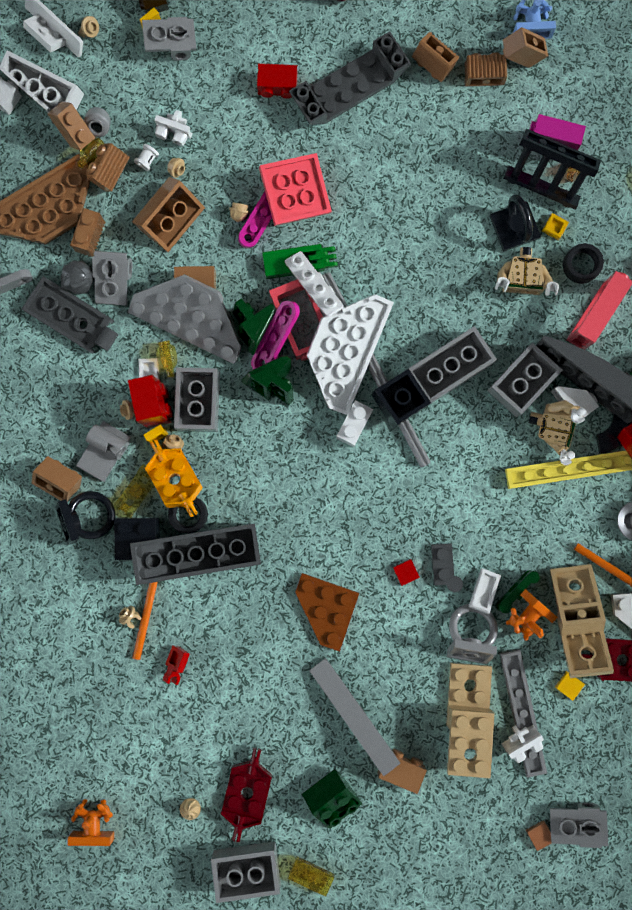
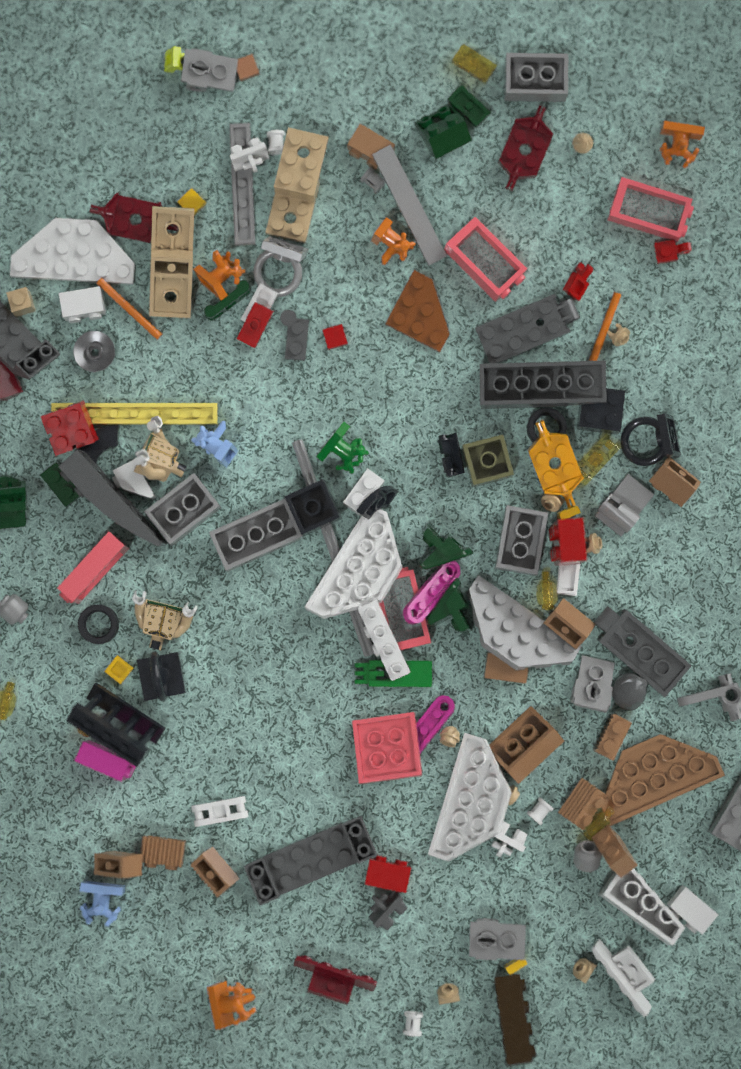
camera: 175 degrees left, 0 degrees up
(91, 710) = (667, 251): none -> red plate
(113, 749) = (650, 209): none -> window
(140, 329) = (569, 623): none -> medium nougat brick
(208, 154) = (473, 801): none -> white plate
(226, 604) = (518, 330): none -> dark grey hinge
(239, 471) = (487, 461): none -> olive brick
(270, 672) = (485, 259): none -> window
(273, 467) = (452, 458): none -> black hinge
(275, 51) = (384, 907): none -> dark grey hips
(310, 829) = (468, 106): none -> dark green plate
(342, 414) = (376, 500): none -> black tile
(363, 676) = (396, 243): none -> orange piece
(380, 460) = (344, 450): none -> green piece
(394, 737) = (373, 180): none -> light grey bush
(439, 113) = (219, 811): none -> white plate
(486, 571) = (255, 325): none -> red plate
(496, 440) = (222, 451): none -> light blue piece
(498, 762) = (275, 142): none -> white bush
(616, 831) = (173, 59): none -> neon yellow tile

